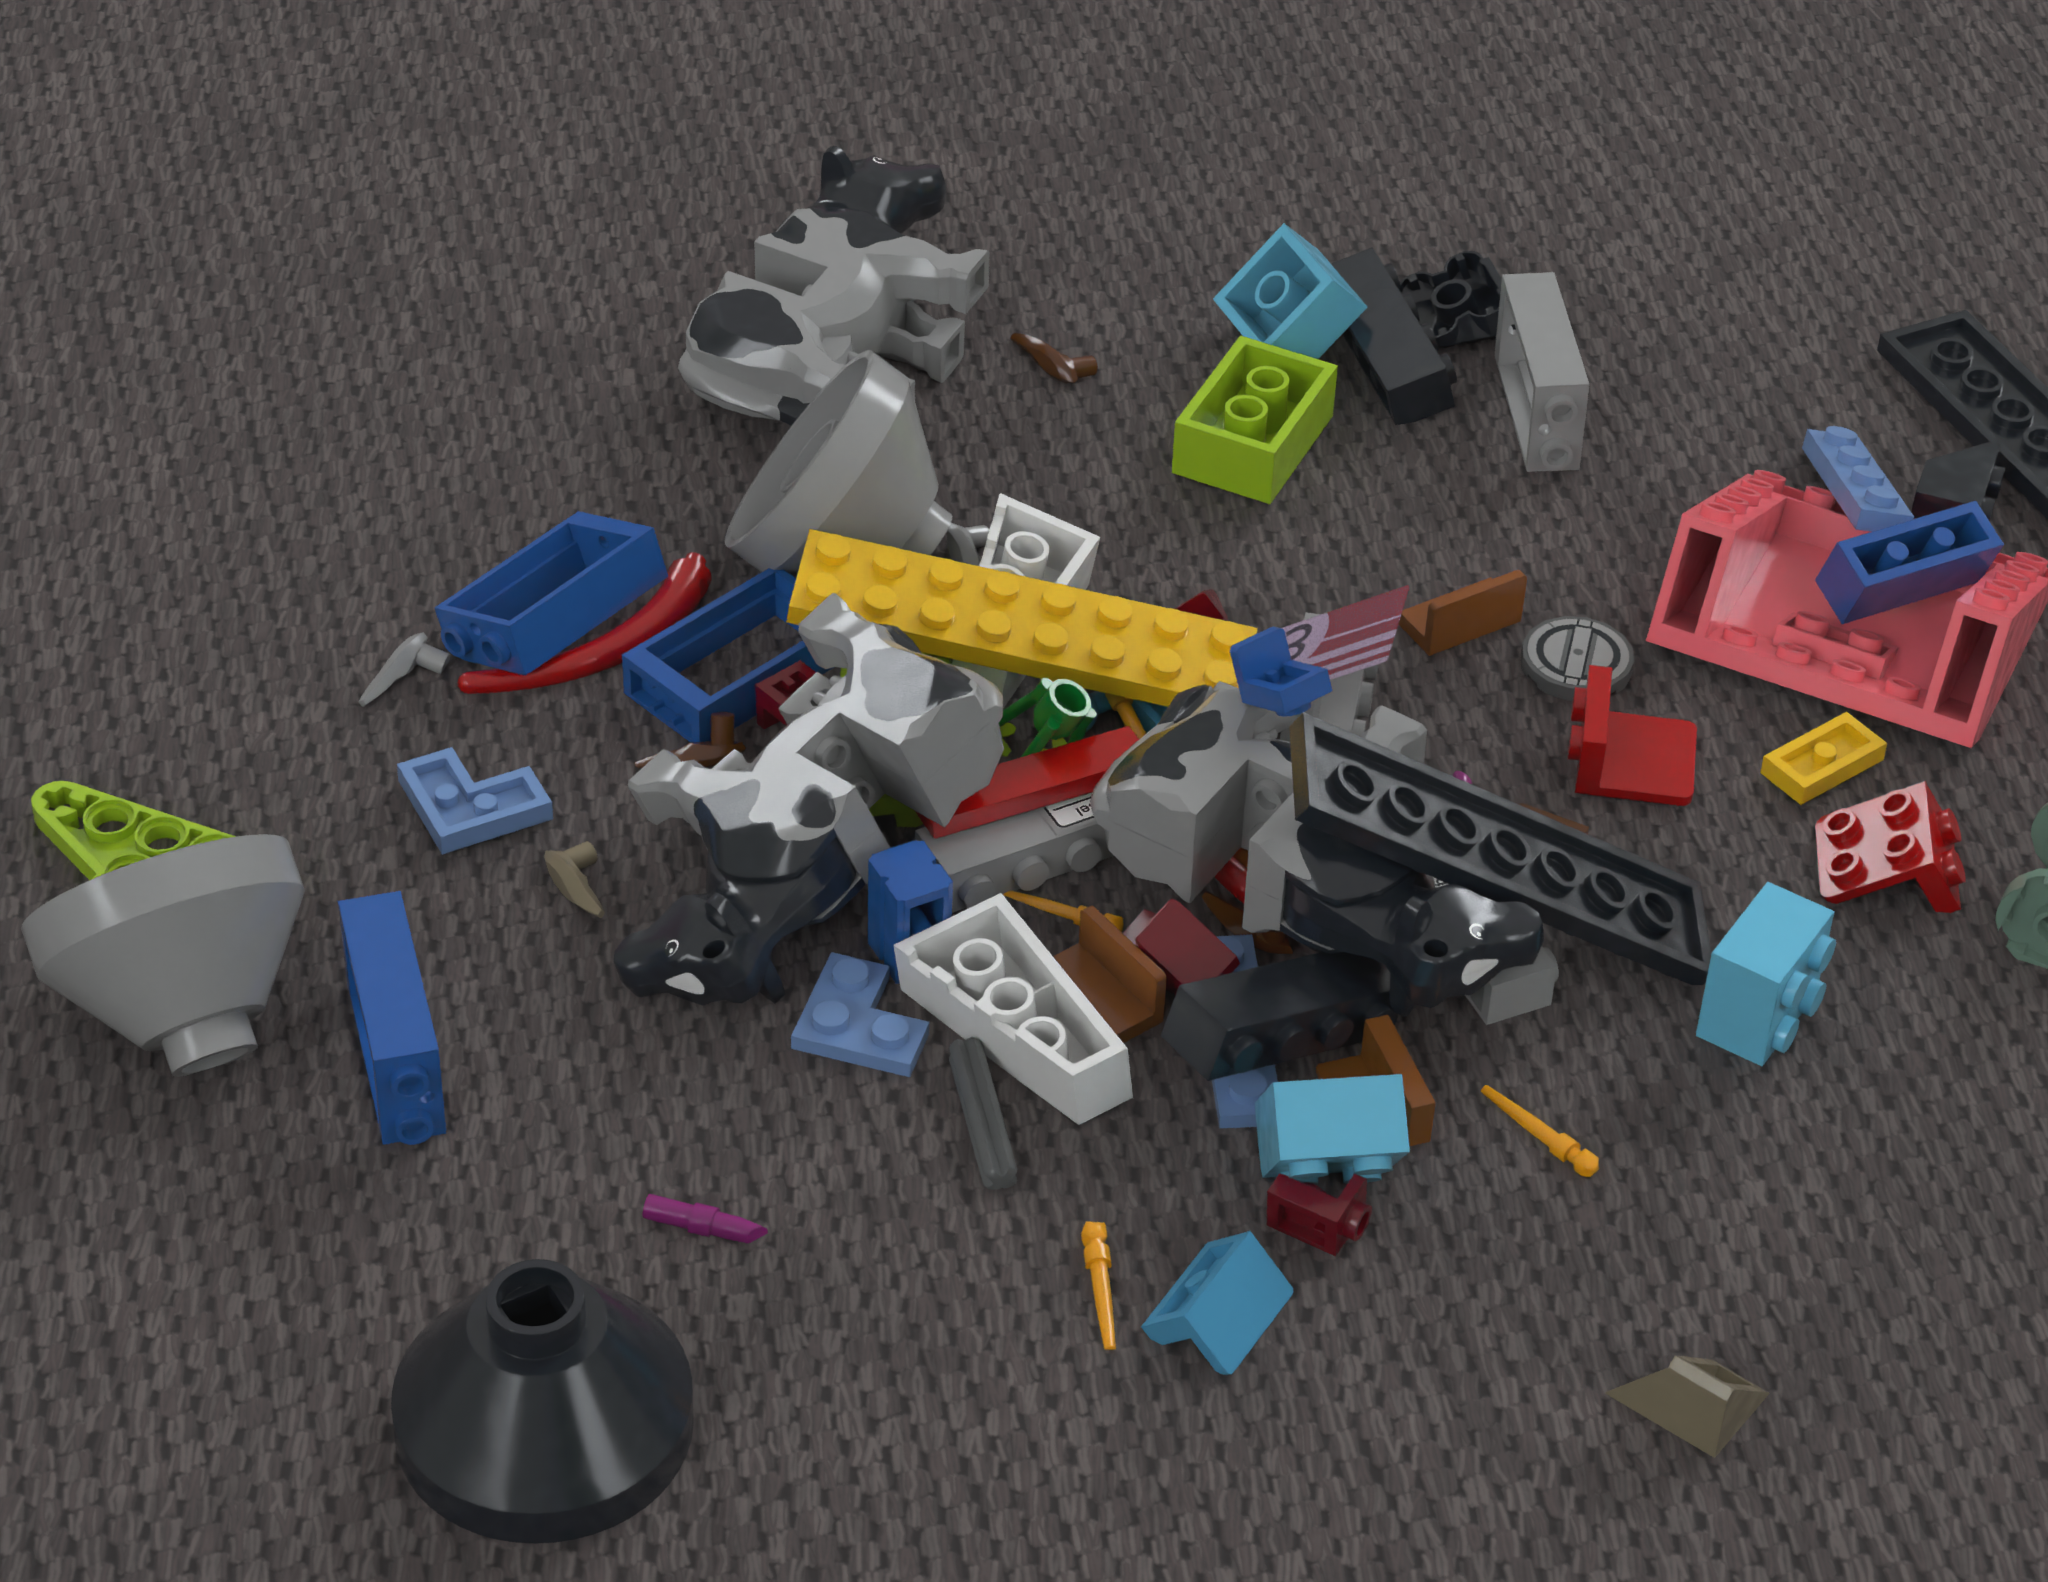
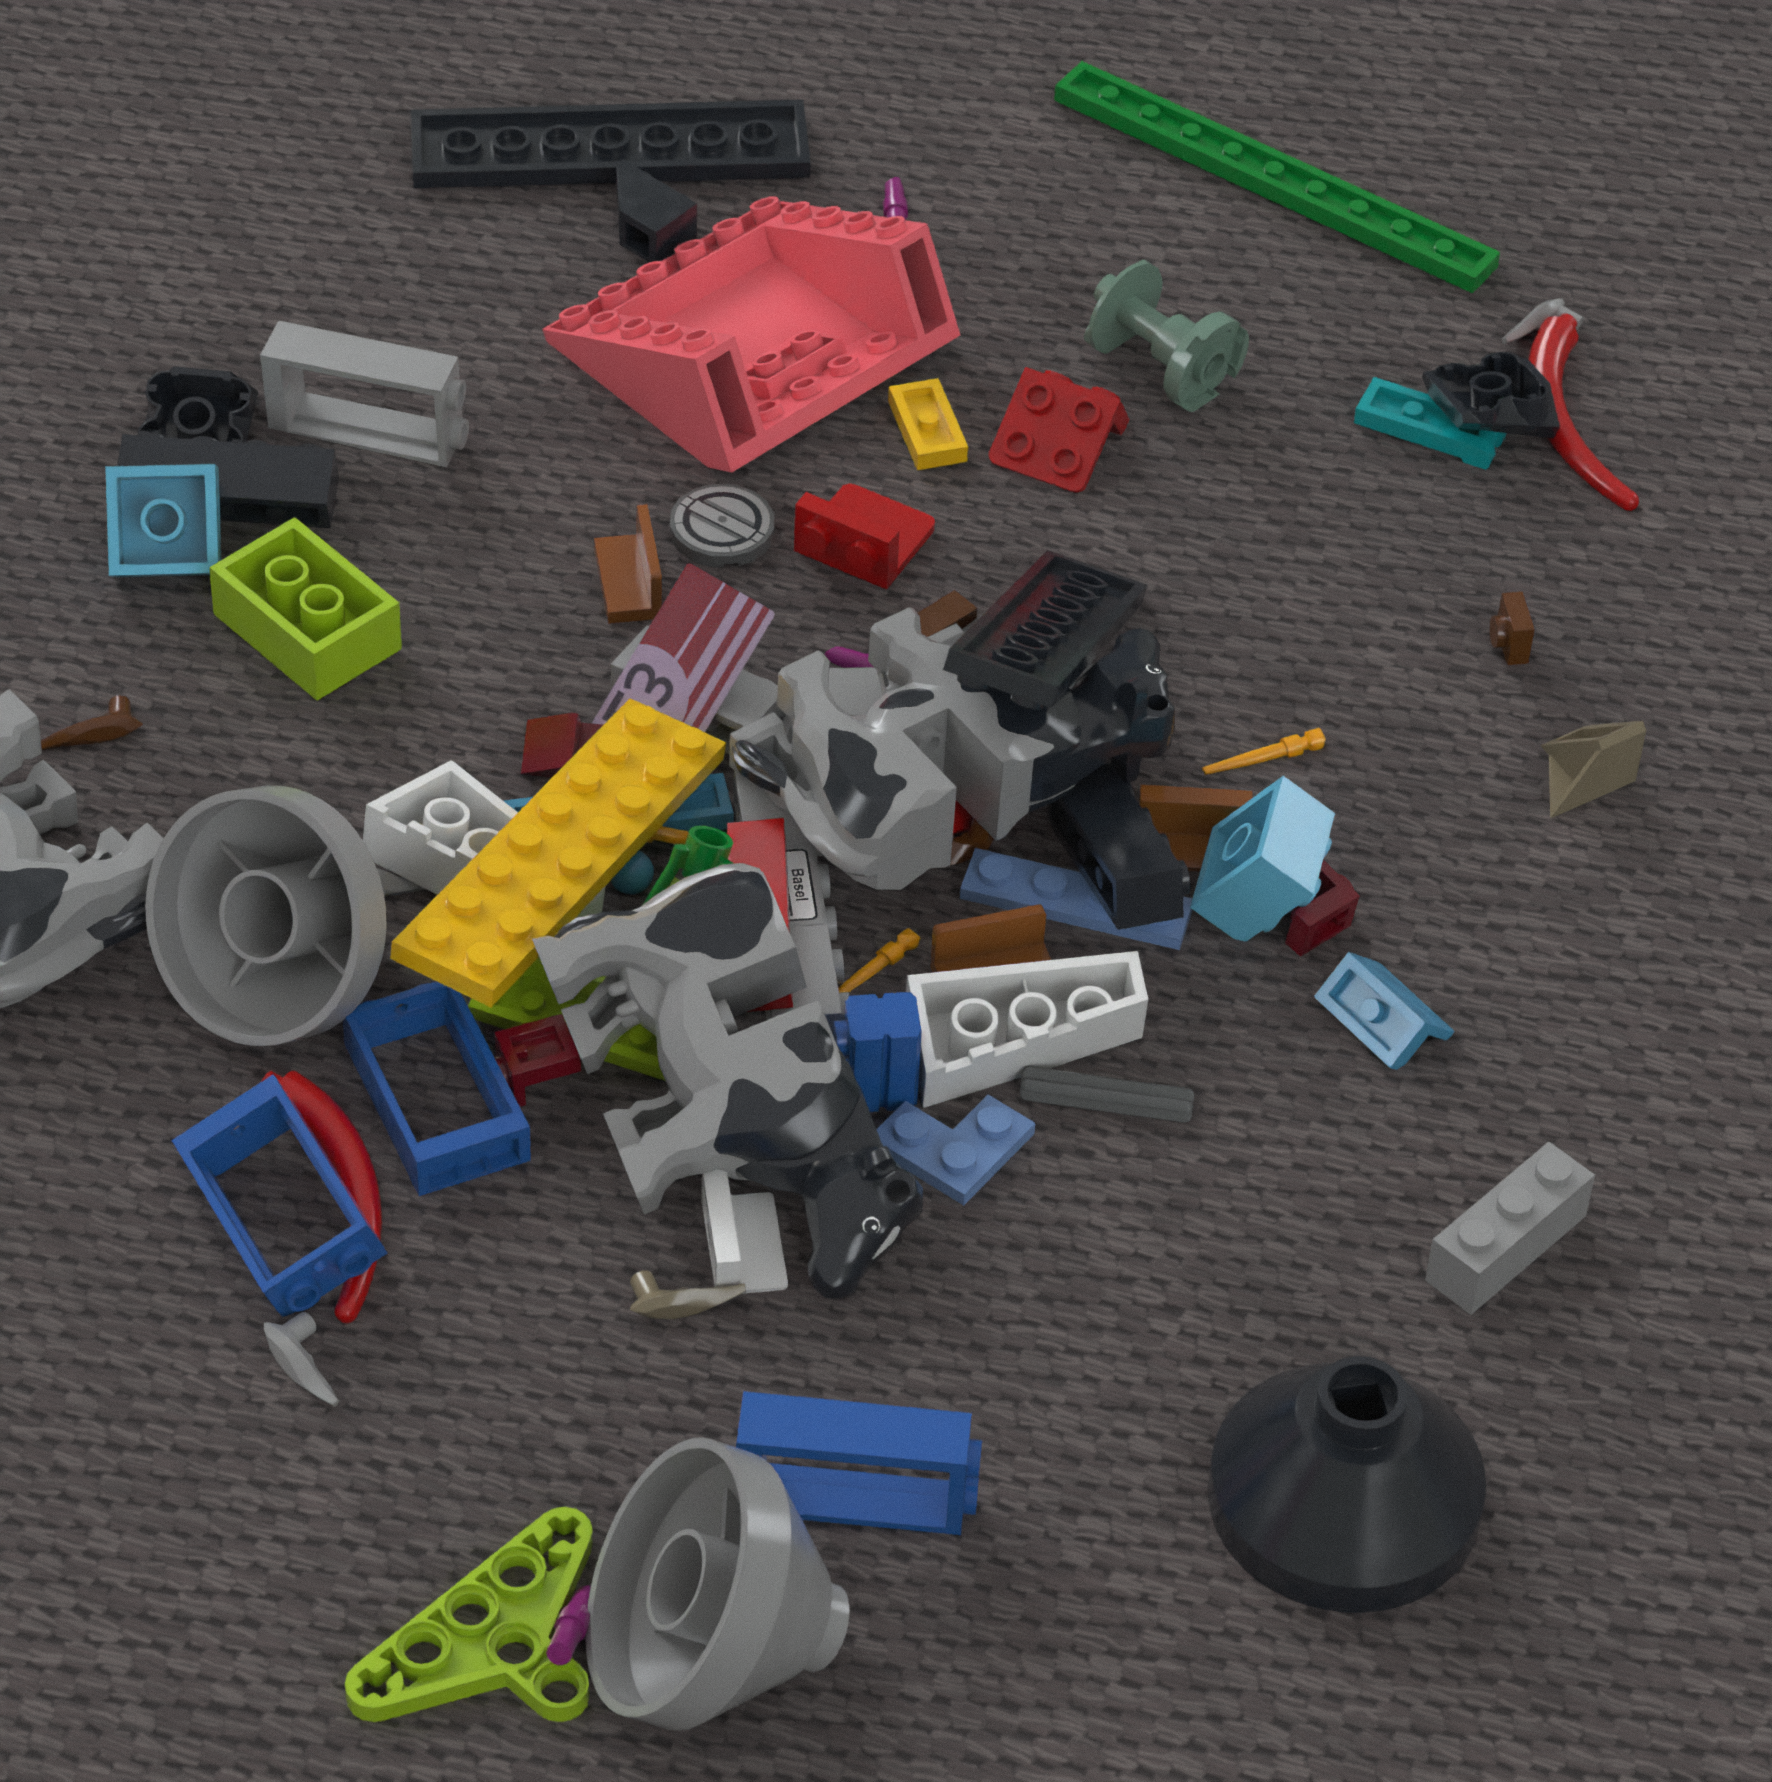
camera: 70 degrees left, 5 degrees up
(469, 812) = (543, 1360): medium blue plate -> none
(647, 884) = (742, 1236): none -> white panel
(701, 1219) = (1151, 1325): magenta piece -> none
(708, 752) = (546, 1159): reddish brown bar -> none
(946, 1462) = (1509, 1227): none -> light grey brick
(1098, 1260) = (1301, 1073): light orange piece -> none
(1180, 945) = (998, 887): dark red slope -> none
(1272, 679) = (839, 668): blue bracket -> none
(1766, 974) = (1193, 544): medium azure brick -> none
(1855, 479) = (616, 262): medium blue plate -> none
(1858, 1282) = (1513, 628): none -> reddish brown plate
(1908, 562) = (763, 268): blue brick -> none

